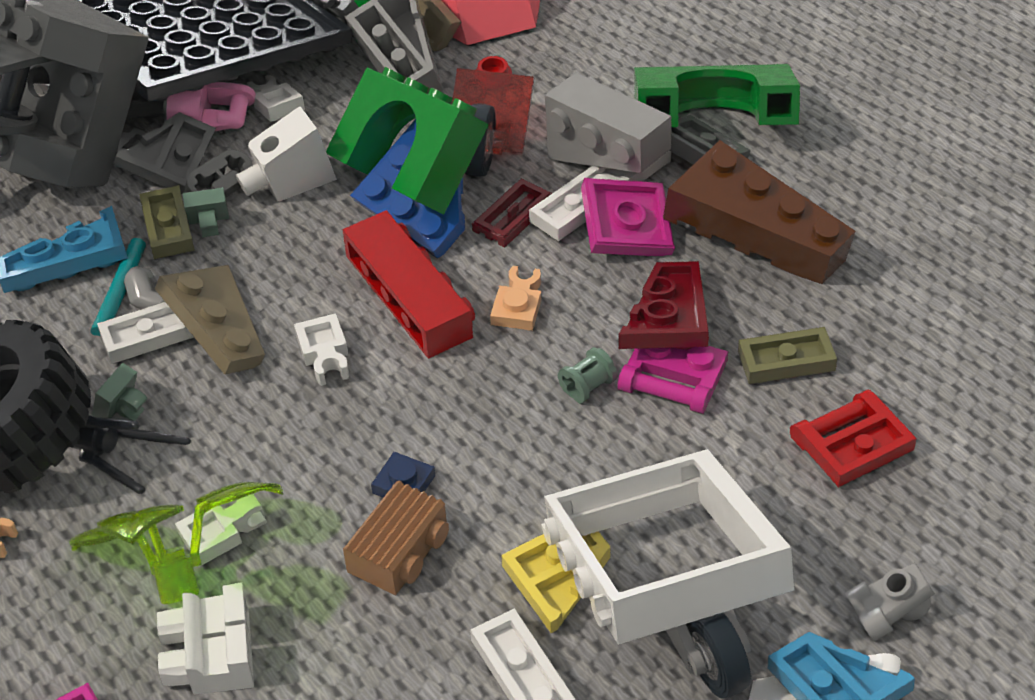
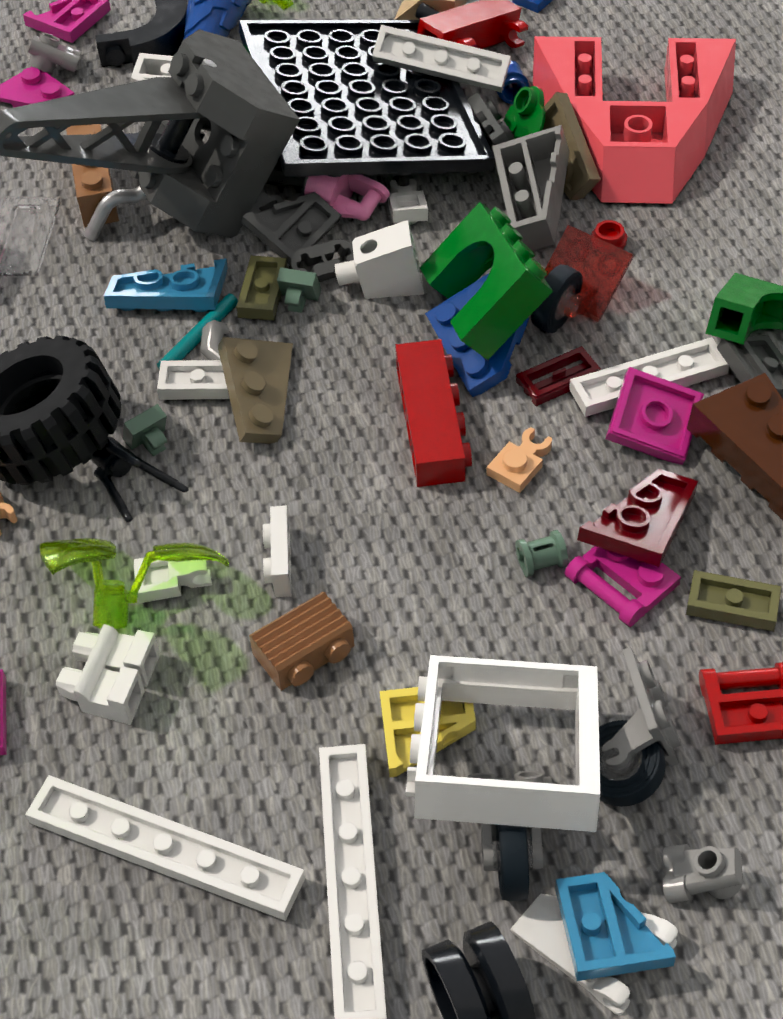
camera: 25 degrees right, 5 degrees up
(323, 345) = (331, 443): white plate -> none
(332, 474) = (277, 538): none -> white plate
(405, 469) = (340, 586): dark blue plate -> none
(603, 127) = (670, 323): light grey wedge -> none
(782, 495) = (637, 748): none -> plate

